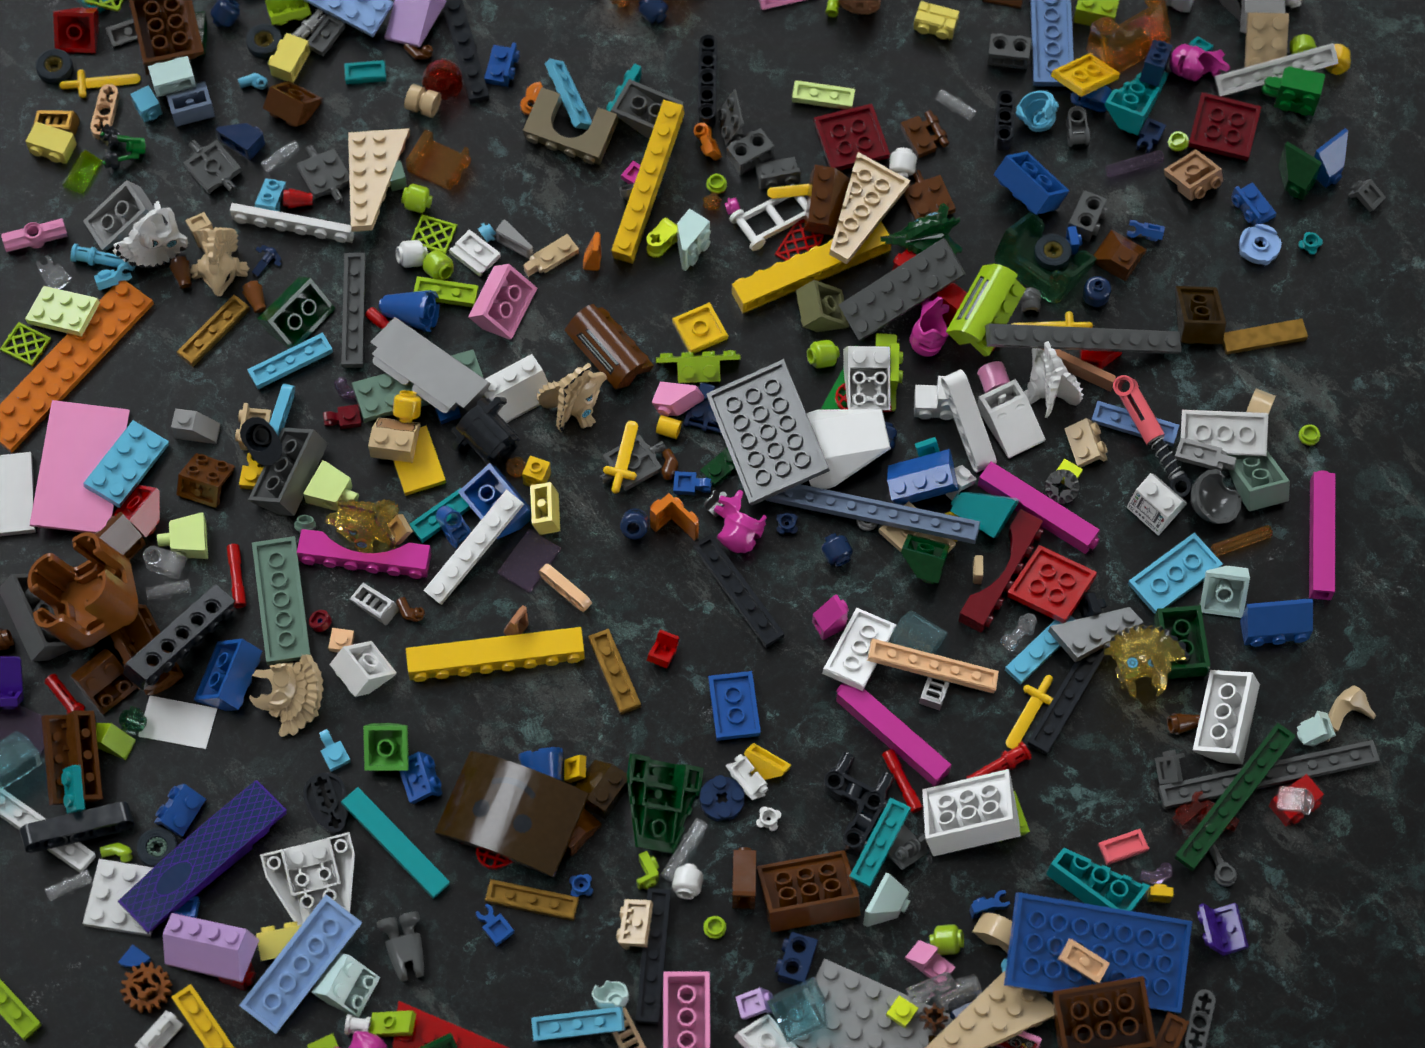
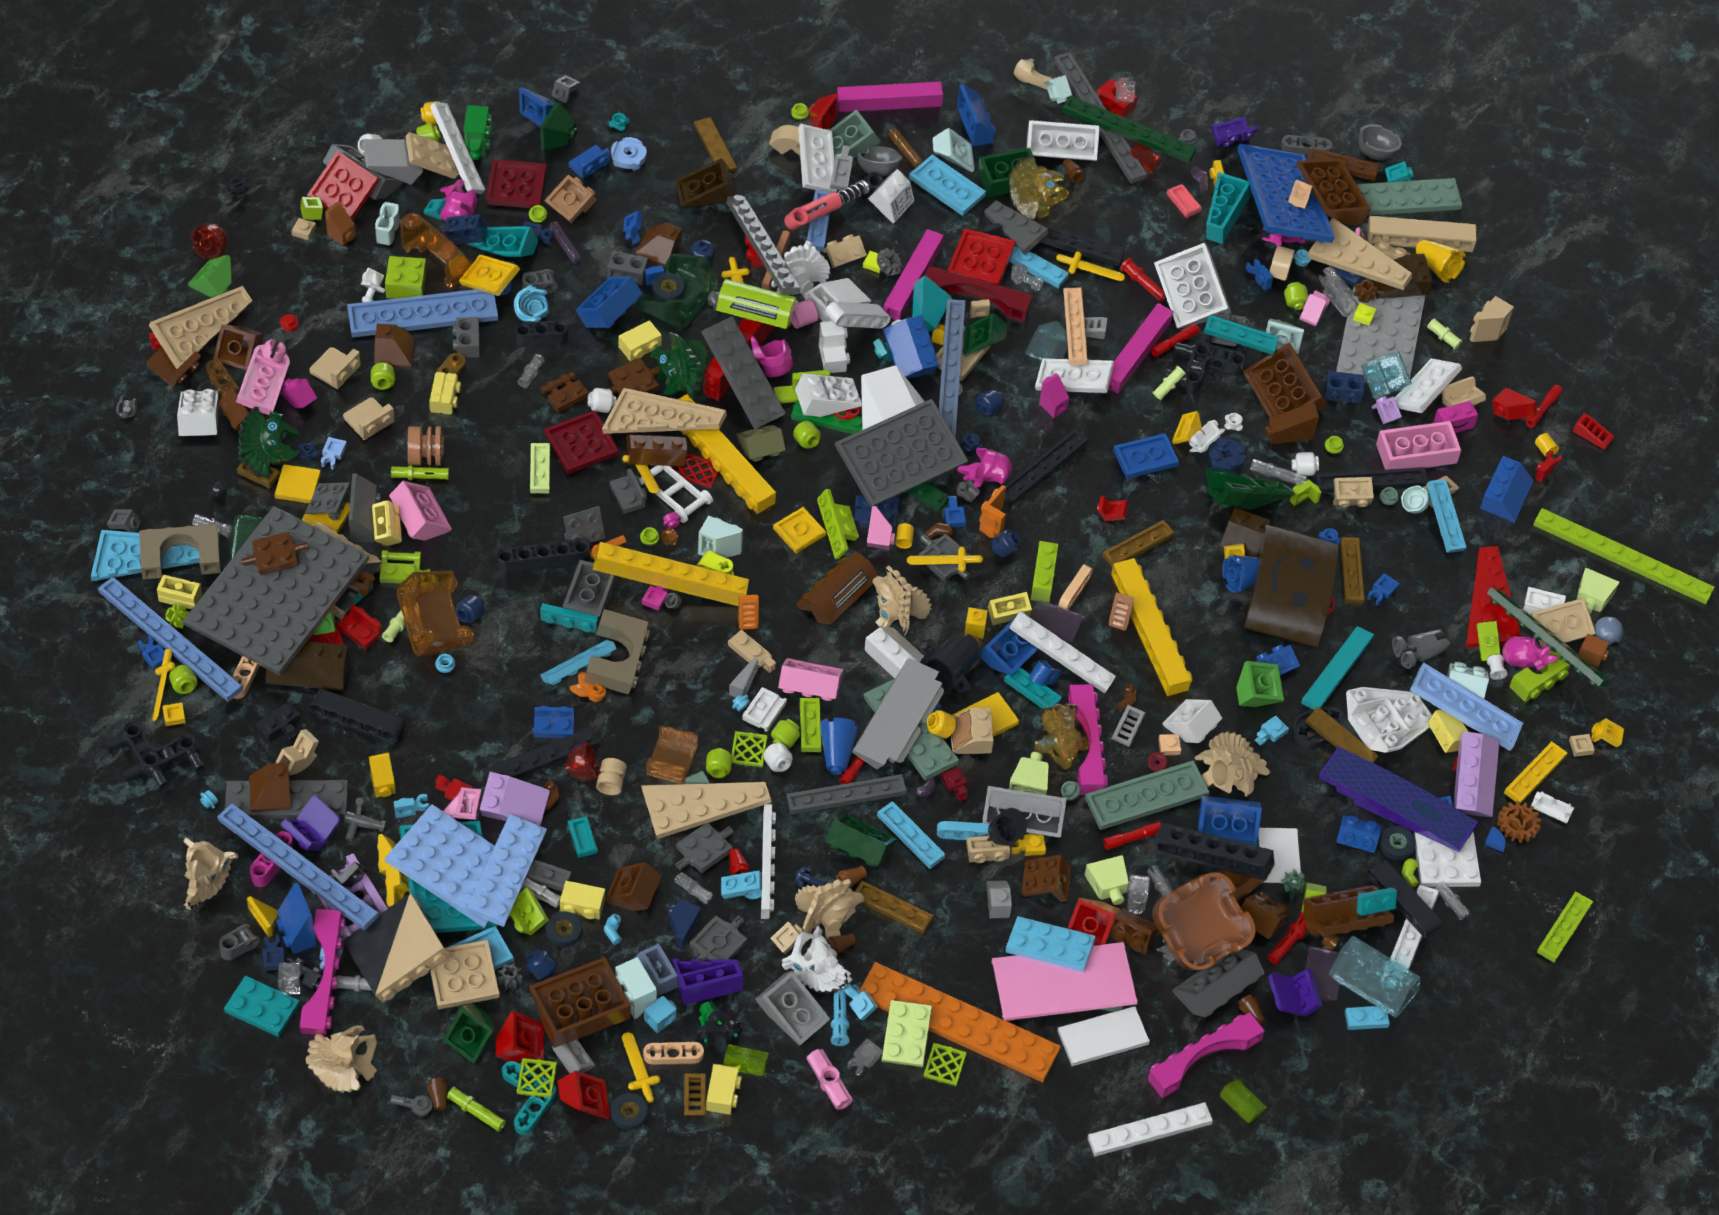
camera: 105 degrees left, 10 degrees down
(171, 141) = (707, 979): none -> dark purple wedge
(300, 818) = (1338, 735): none -> pearl gold tile
(605, 561) = (1044, 571): none -> lime arch
(627, 971) = (1389, 496): none -> sand green plate
(752, 154) = (613, 510): dark grey brick -> none
(831, 752) = (1169, 383): none -> yellowish green pin
(971, 34) = (451, 365): none -> pearl gold plate
(980, 212) = (639, 341): none -> light yellow brick
(1169, 767) = (1113, 173): dark grey bracket -> none
(1292, 451) = (824, 112): none -> red slope

